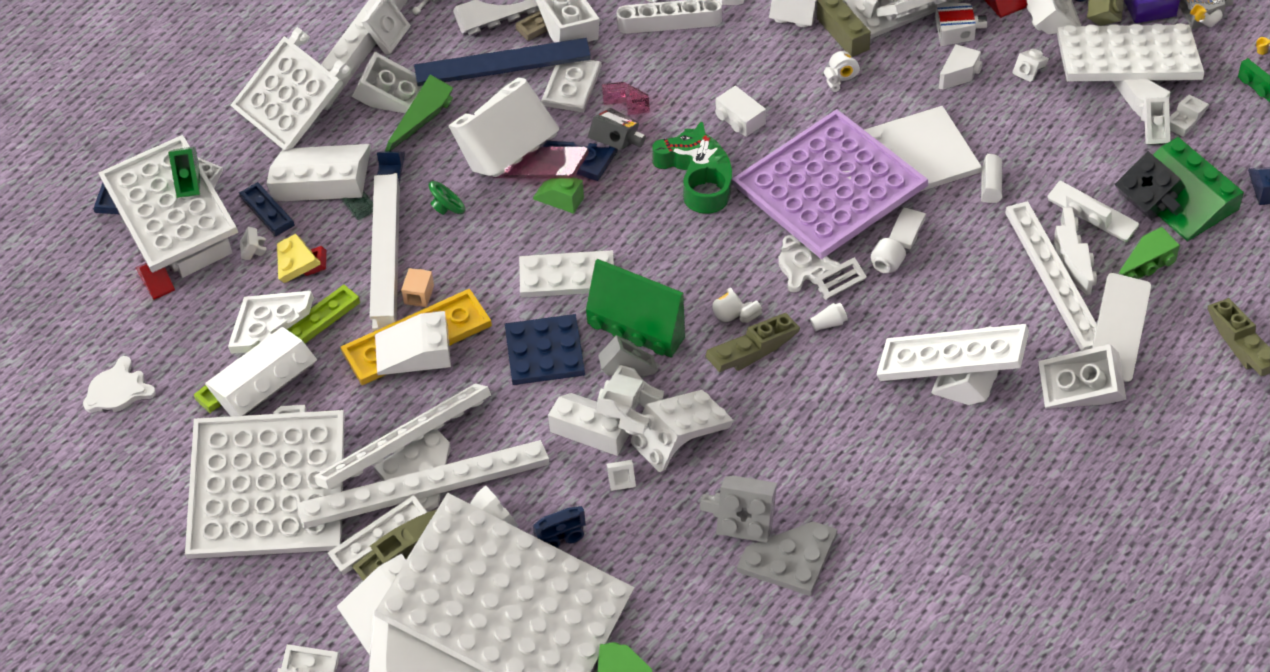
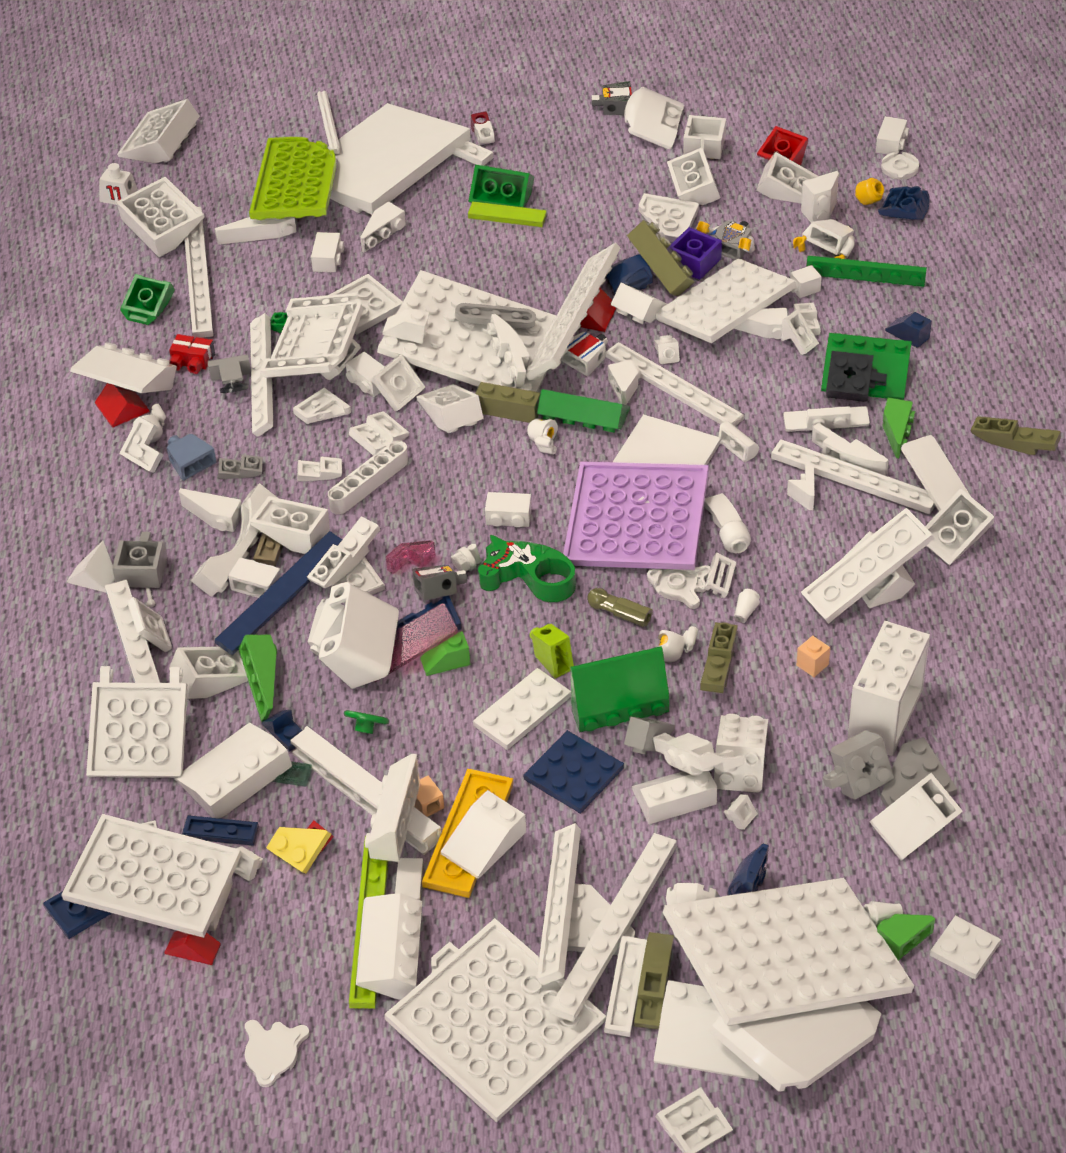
camera: 45 degrees left, 5 degrees down
(185, 171) = (149, 835): green slope -> none
(265, 315) = (336, 904): white plate -> none
(329, 346) = (409, 877): none -> white tile
(369, 279) = (394, 810): none -> white slope
(498, 35) = (252, 577): none -> white brick
(576, 66) = (346, 556): none -> white slope
(626, 635) = (879, 911): none -> white cone
(634, 233) = (552, 649): none -> lime torso
(663, 128) = (466, 558): none -> white piece
(731, 248) = (620, 607): none -> olive piece
(739, 584) = (916, 816): none -> white slope
(824, 463) = (892, 684): none -> white window
(827, 396) = (813, 656): none -> light nougat brick
(896, 69) = (582, 409): none -> green slope
(997, 257) = (803, 489): none -> white slope
(1000, 100) = (676, 386): none -> white tile
(1222, 81) = (807, 281): none -> white brick

